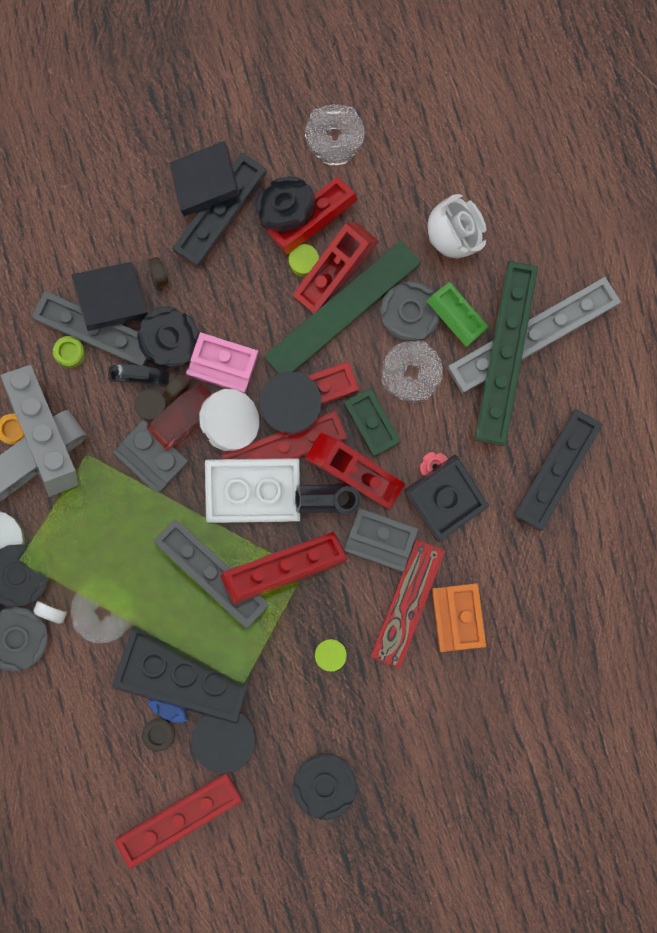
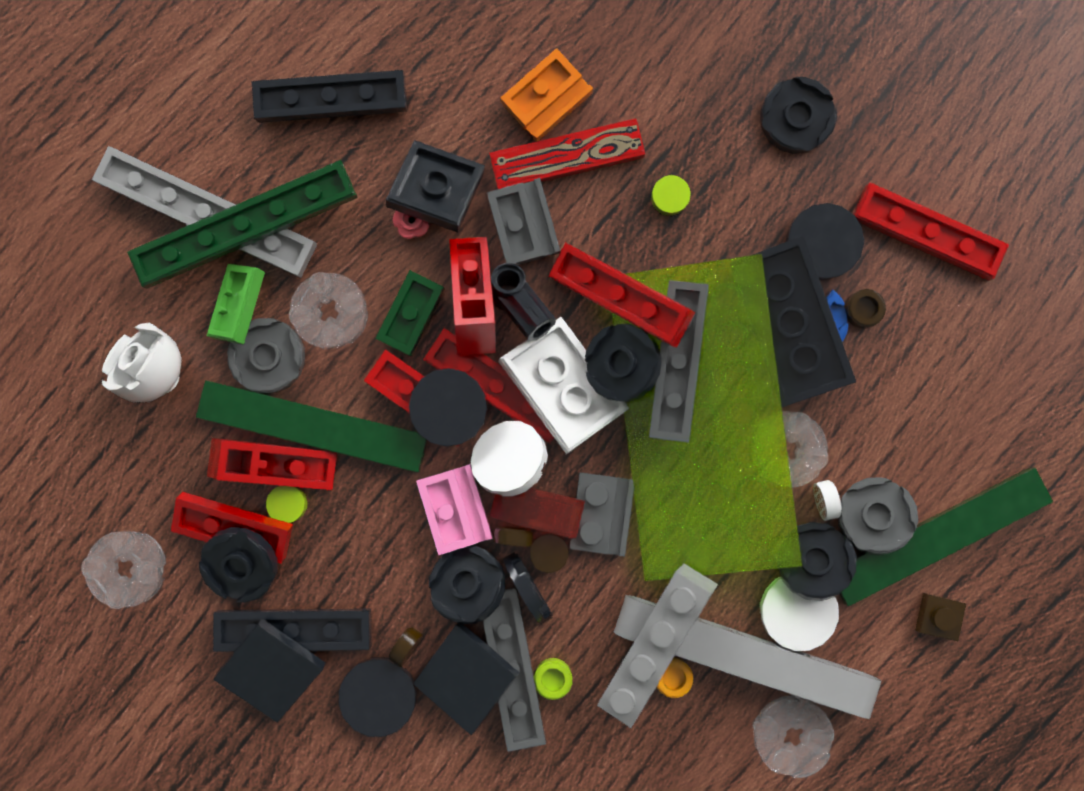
camera: 120 degrees left, 5 degrees up
(139, 234) = (377, 697): none -> black tile
(237, 536) = (623, 362): none -> black tile

